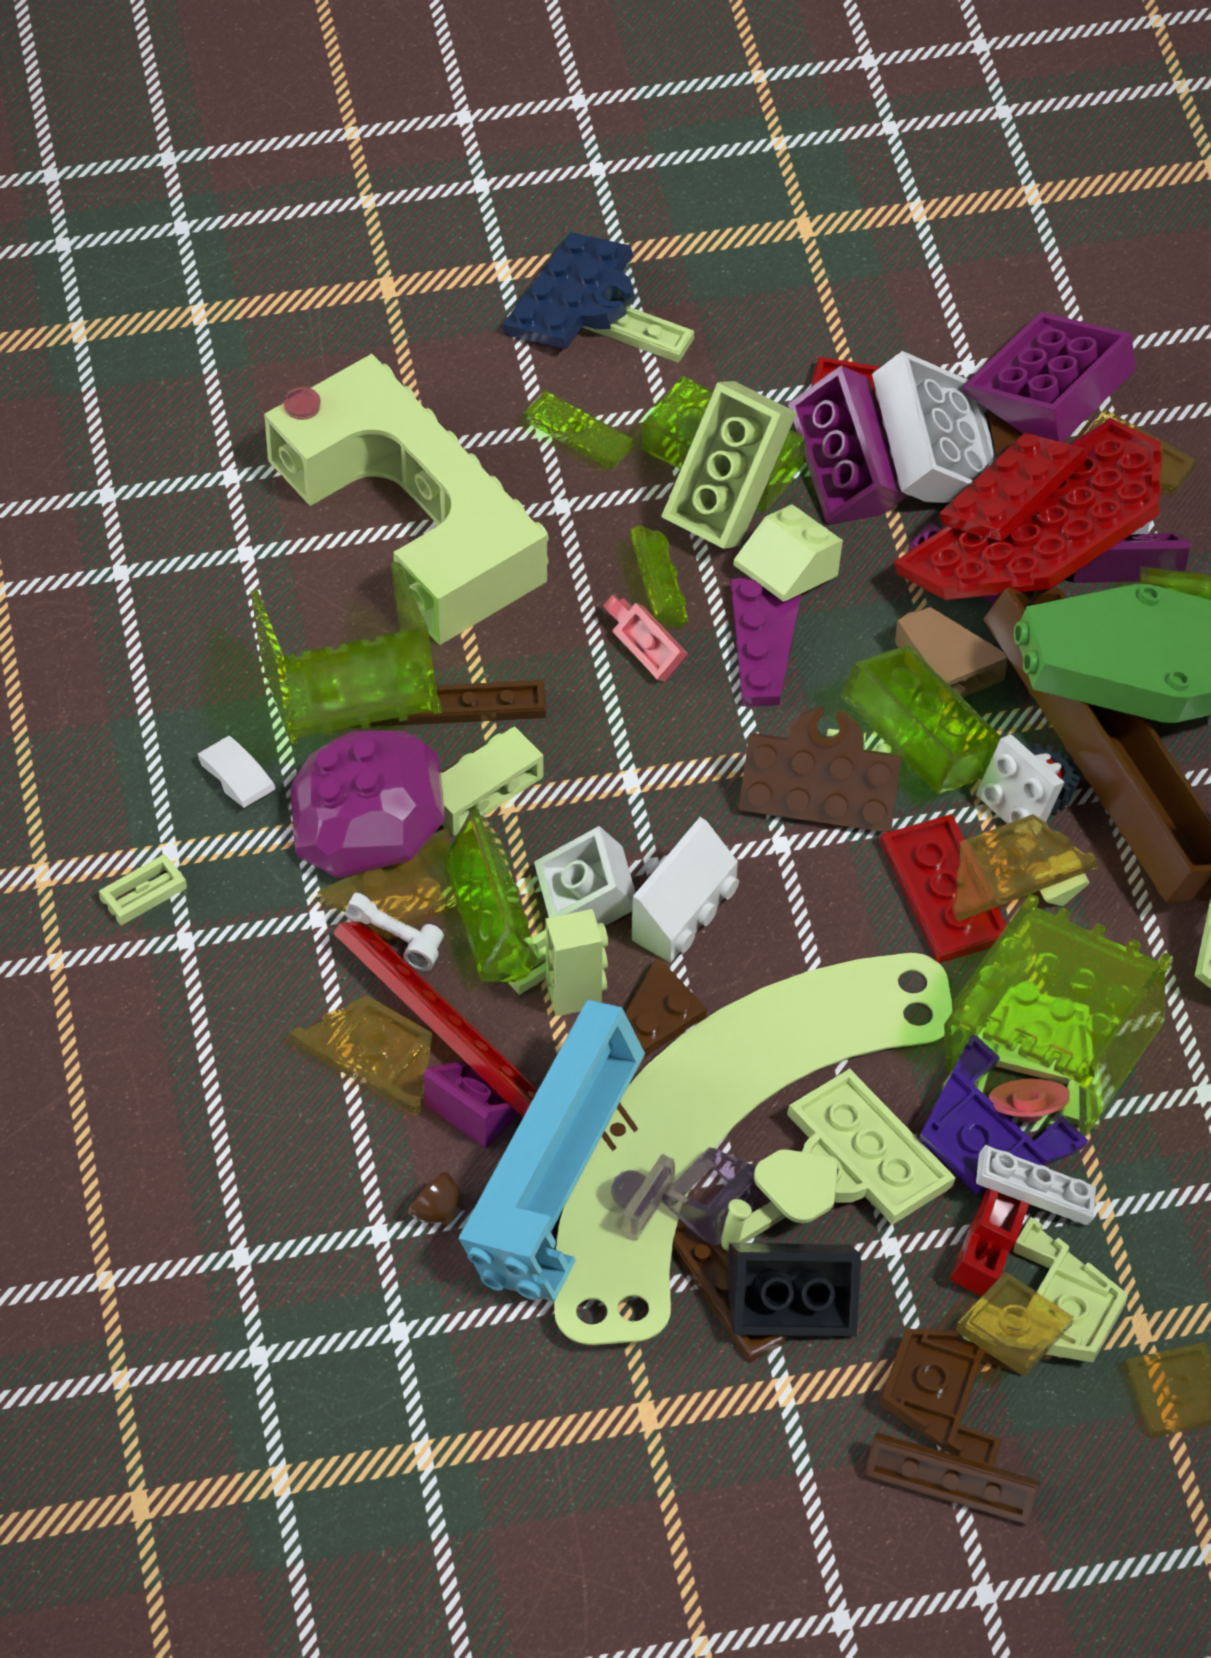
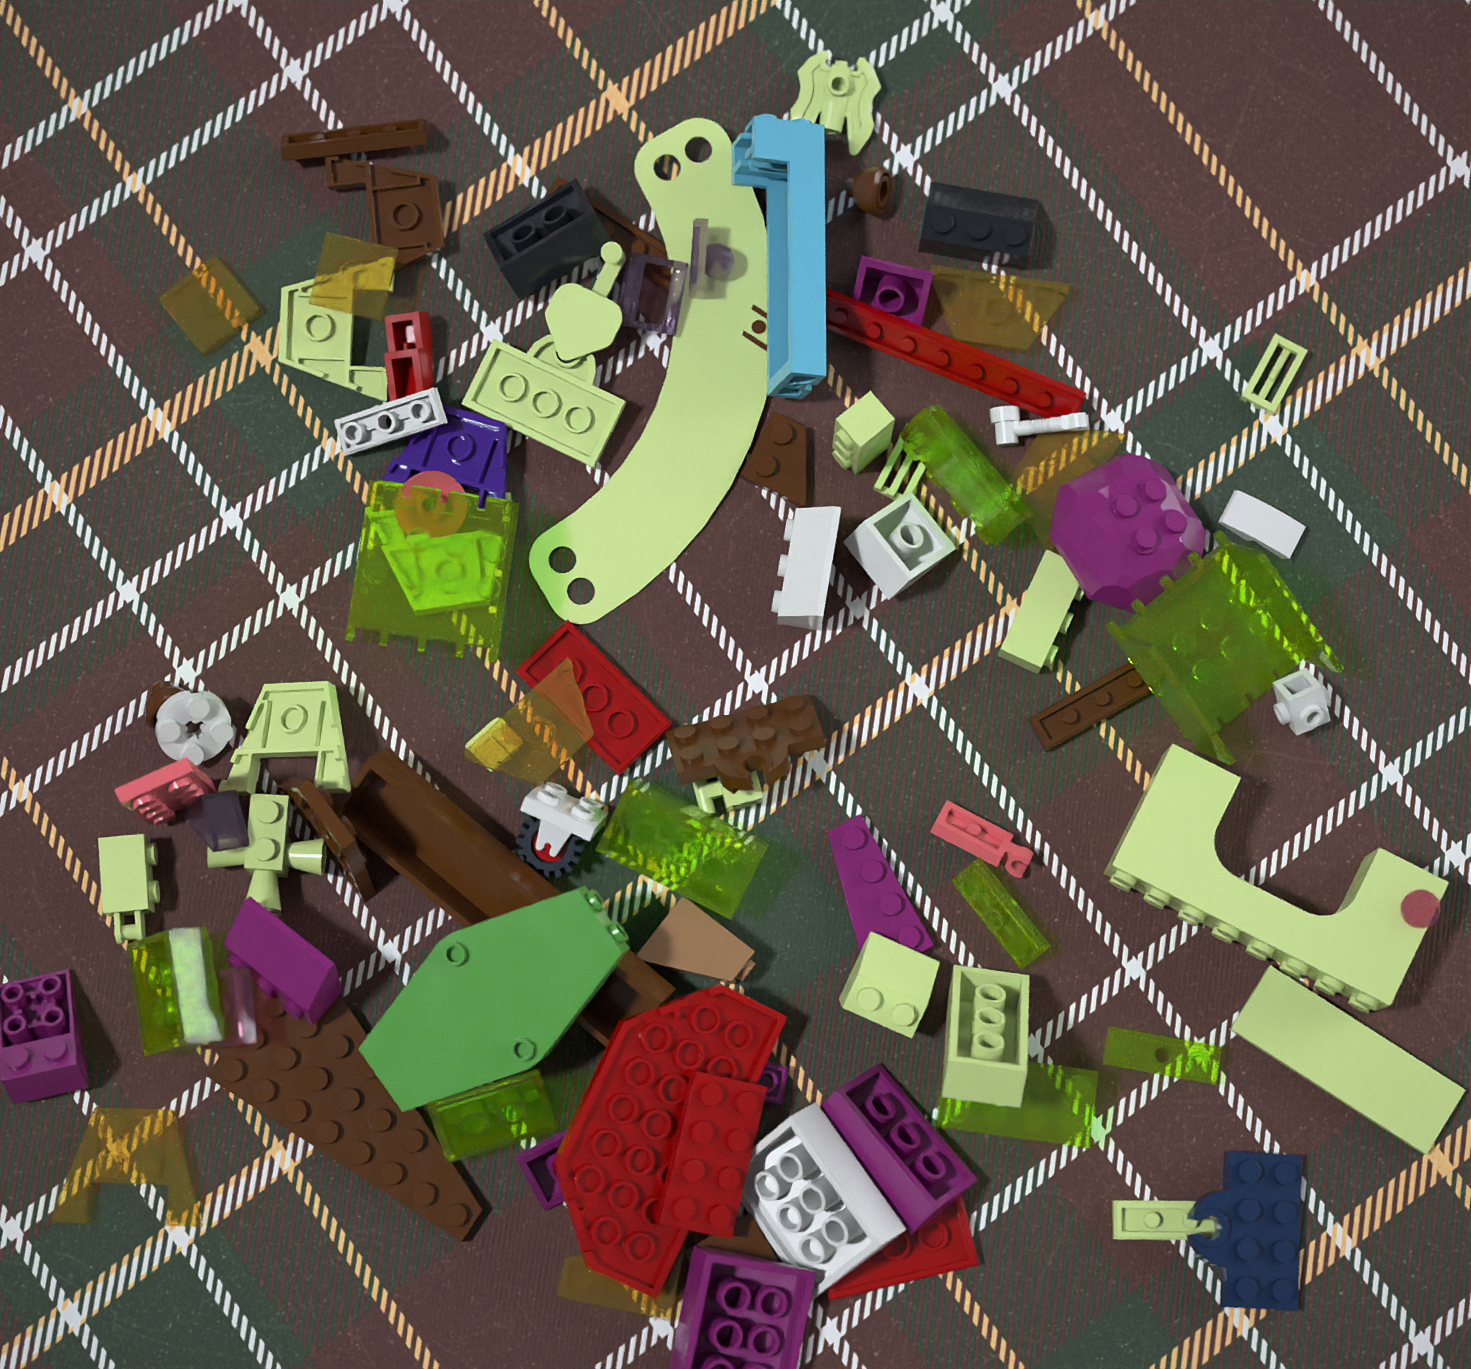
camera: 155 degrees right, 25 degrees up
(291, 629) = (1301, 701): none -> white brick
(345, 1127) = (978, 225): none -> black slope
(405, 342) = (1347, 1060): none -> yellowish green tile
(423, 1308) = (838, 96): none -> yellowish green piece

